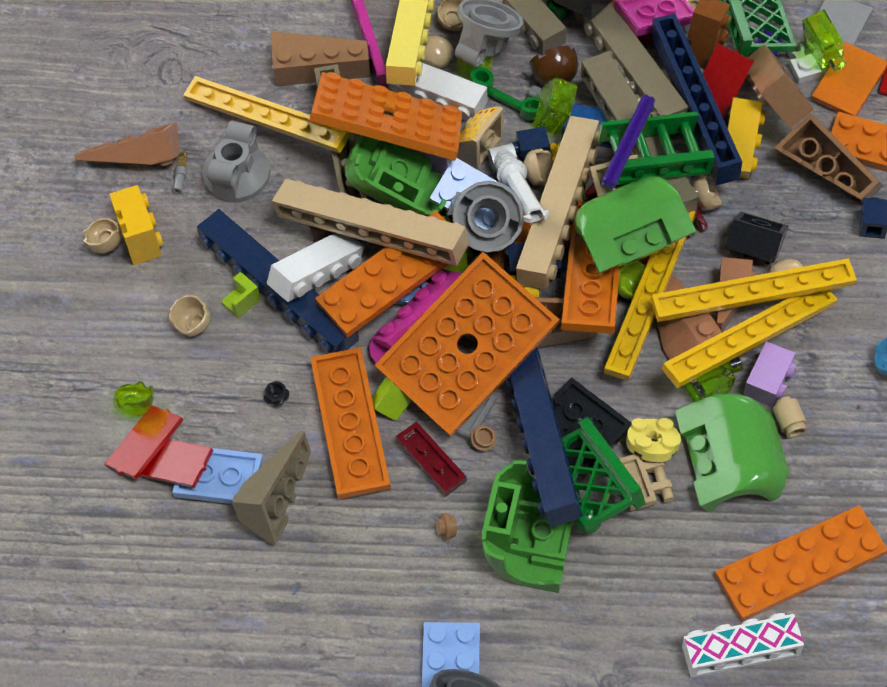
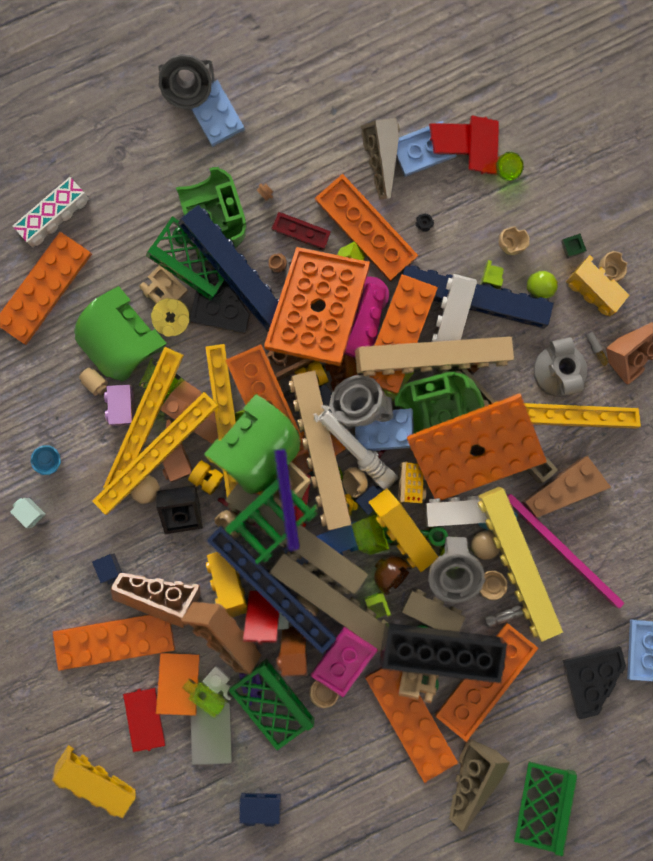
camera: 145 degrees right, 25 degrees up
(126, 281) = (573, 246): none -> dark green plate
(191, 261) = (542, 284): none -> lime hair
(517, 94) = (403, 530): none -> yellow wedge
(585, 50) = (378, 604): none -> lime panel
(706, 249) = (201, 472): none -> yellow wheel

